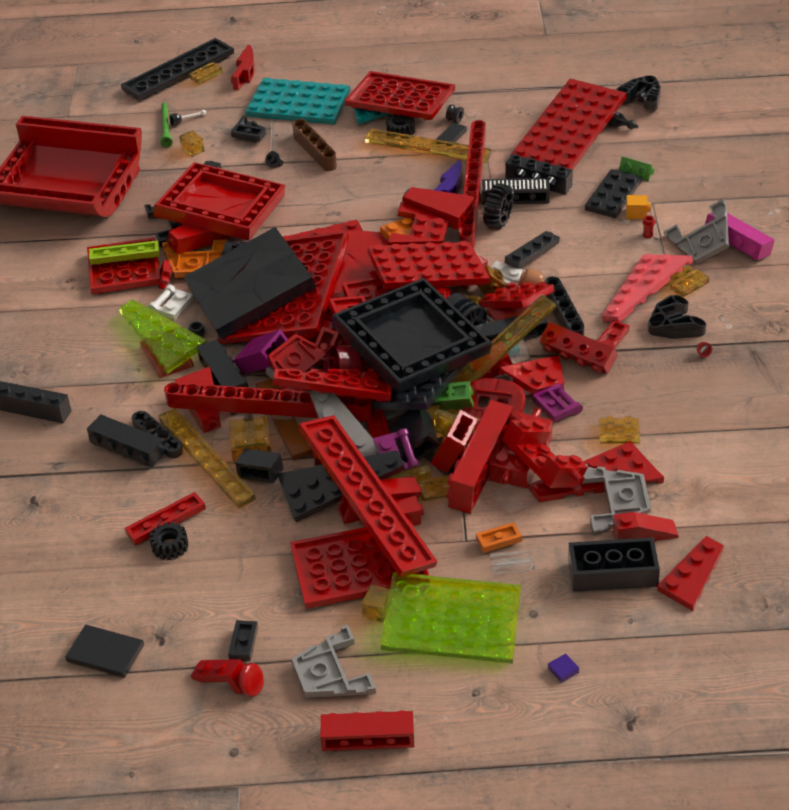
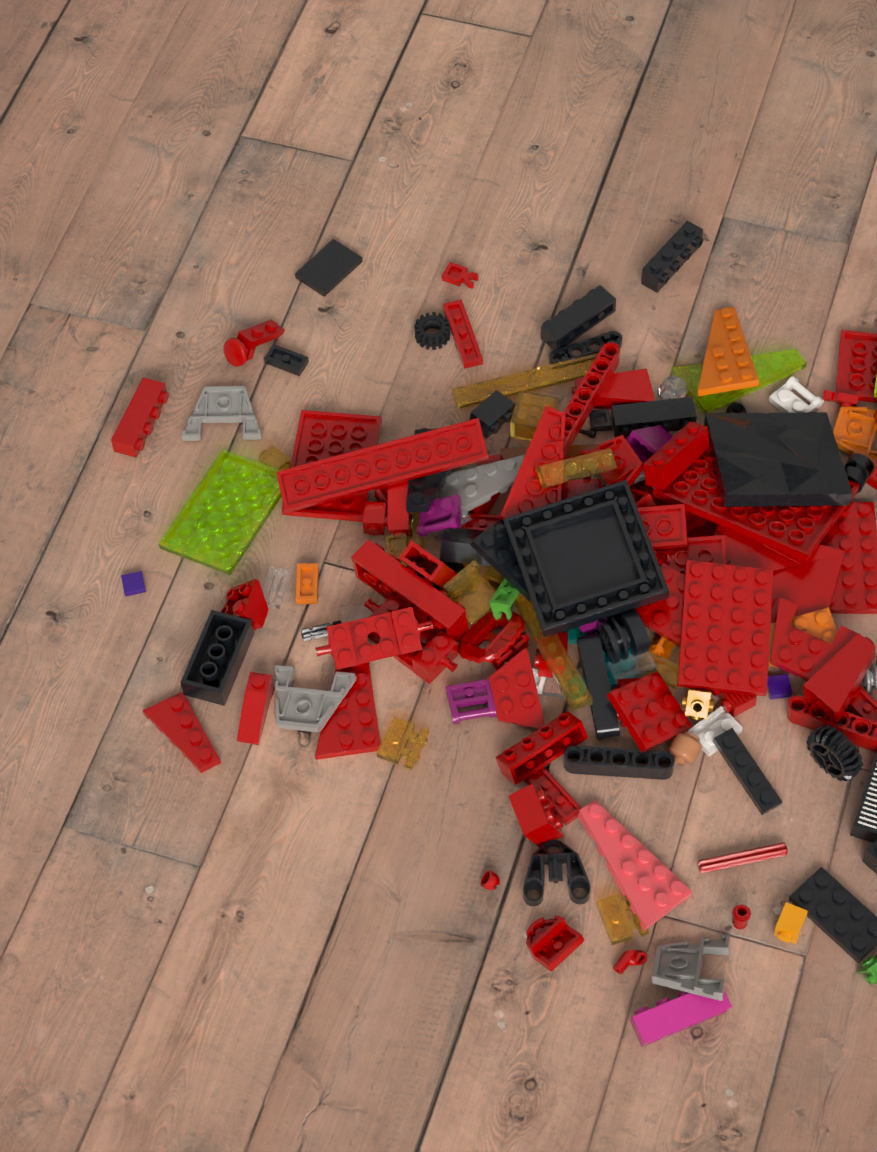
camera: 110 degrees right, 15 degrees up
(91, 544) = (458, 274): none -> red plate
(144, 336) = (727, 356): none -> orange wing
(191, 361) = (672, 388): none -> clear head
(263, 321) = (676, 455): none -> red brick
(321, 362) = (576, 468): none -> clear yellow plate
(541, 512) = (318, 631): none -> axle
(548, 570) = (247, 602): none -> red slope
(600, 240) = (742, 857): none -> axle
(641, 327) = (536, 815): none -> red brick
(713, 272) = (629, 958): none -> red arm
(729, 306) = (552, 941): none -> red slope

